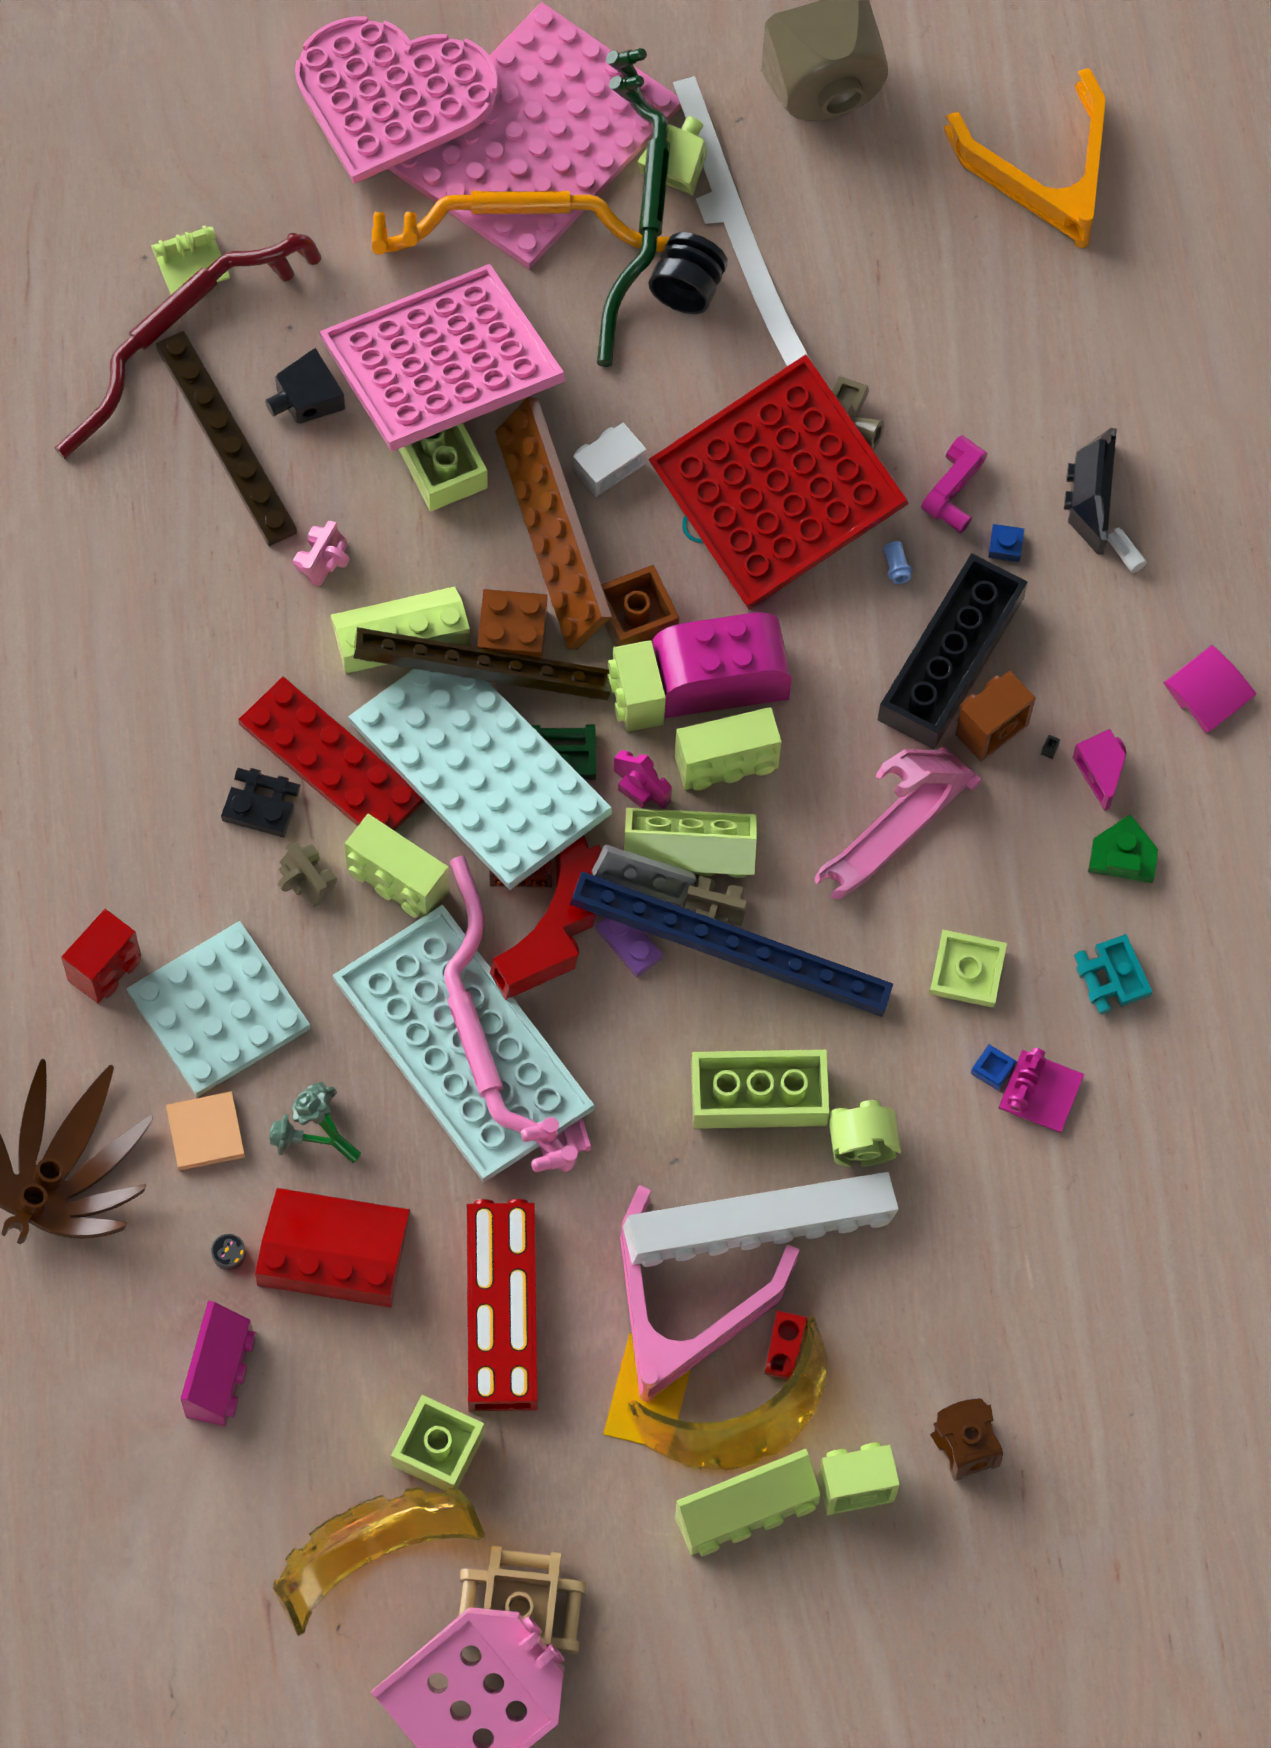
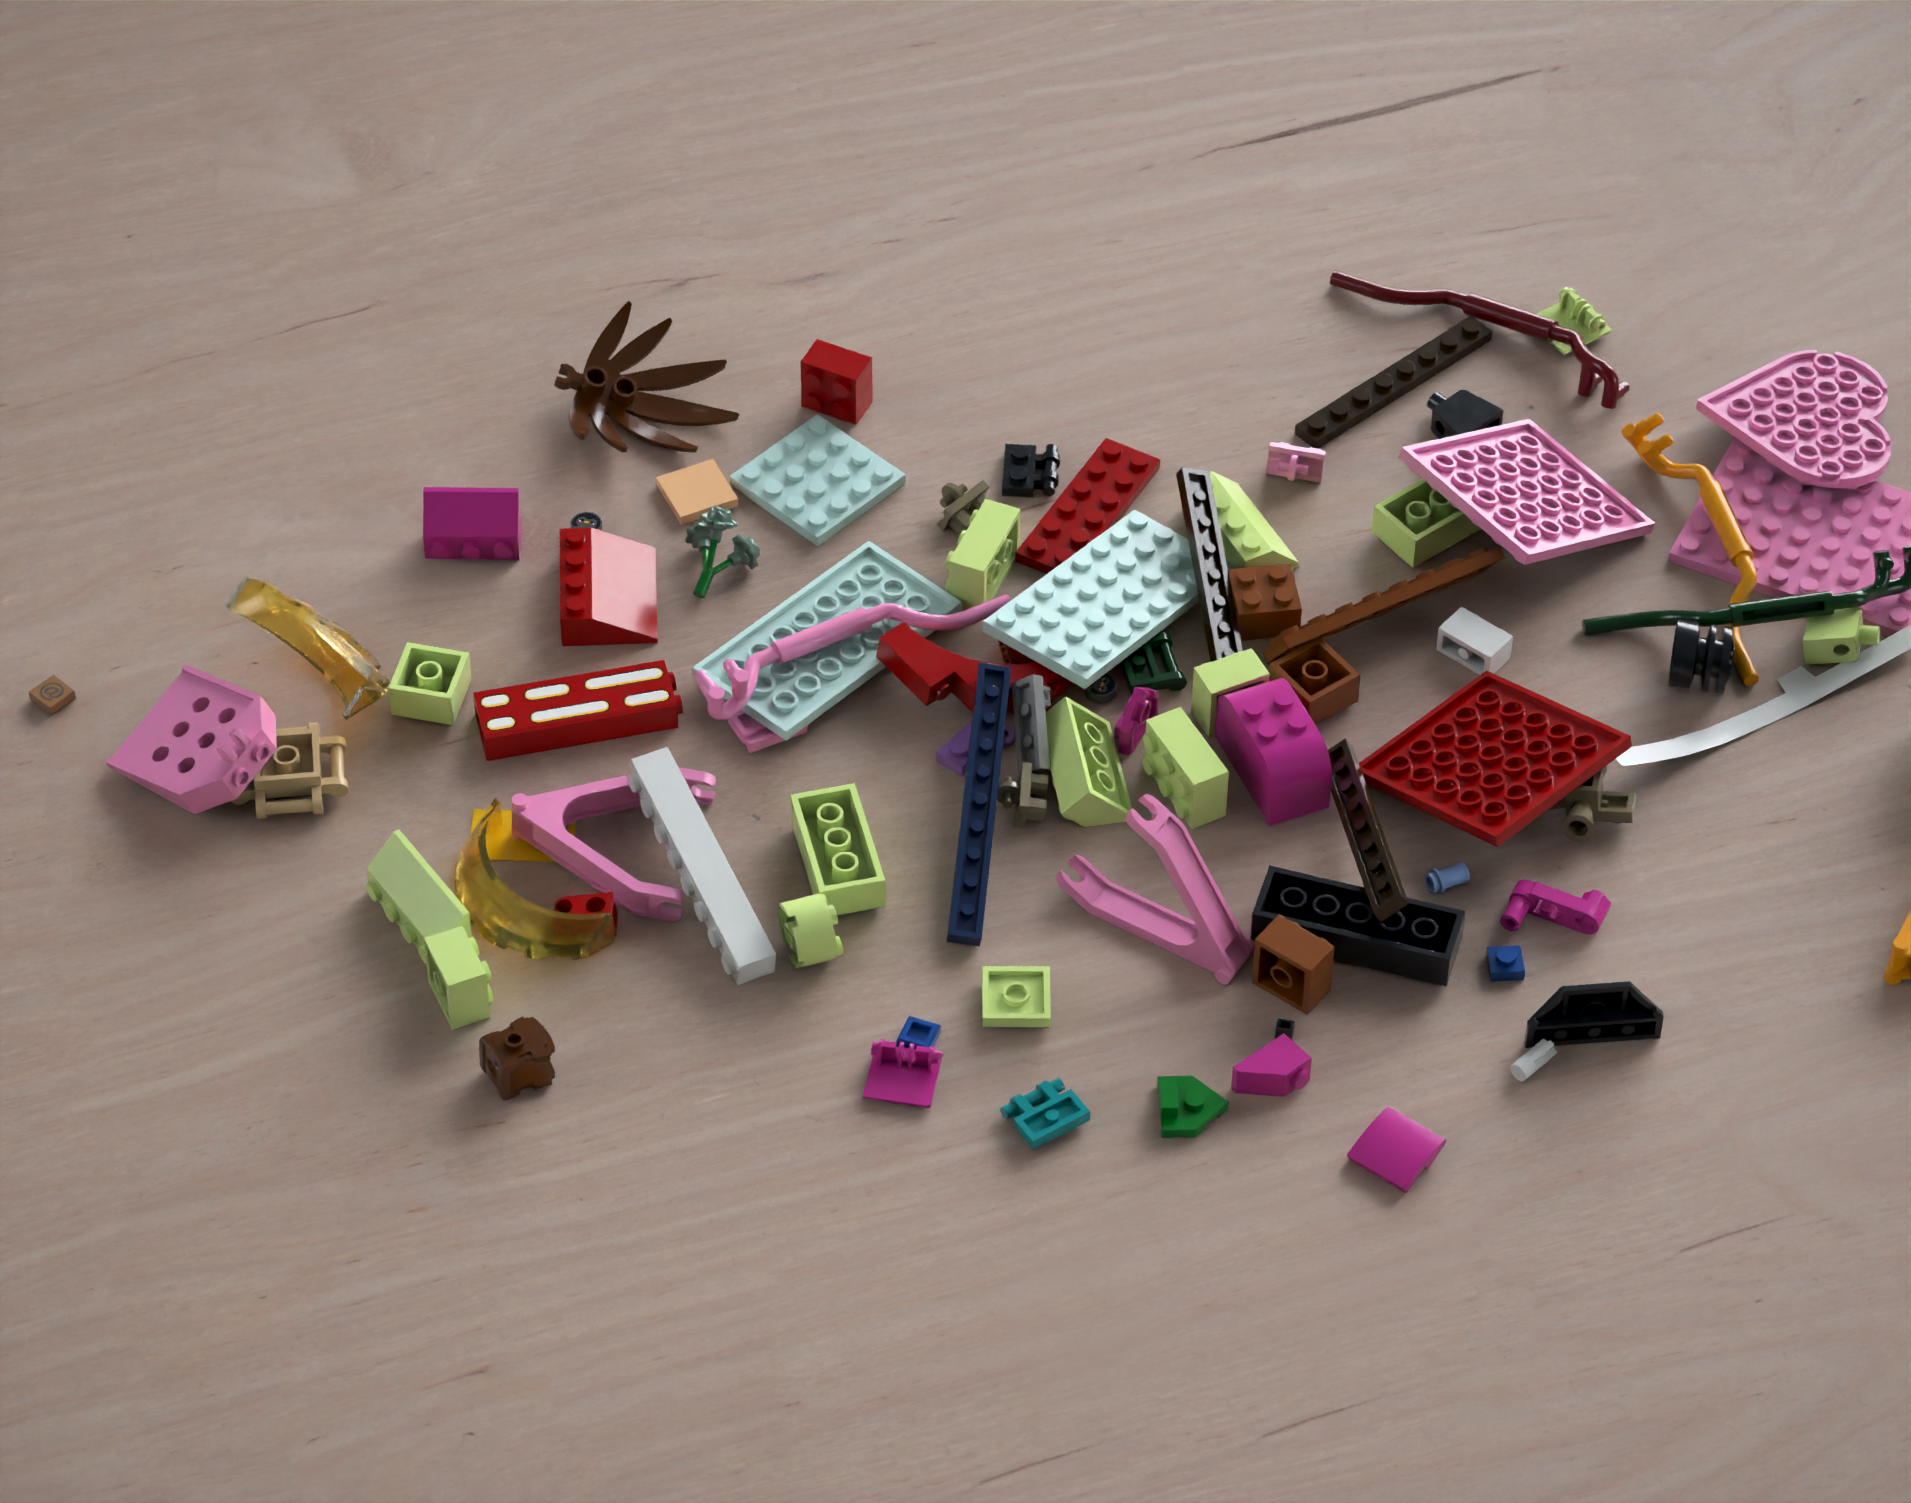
camera: 80 degrees right, 20 degrees down
(864, 611) = (1365, 833): none -> dark brown plate

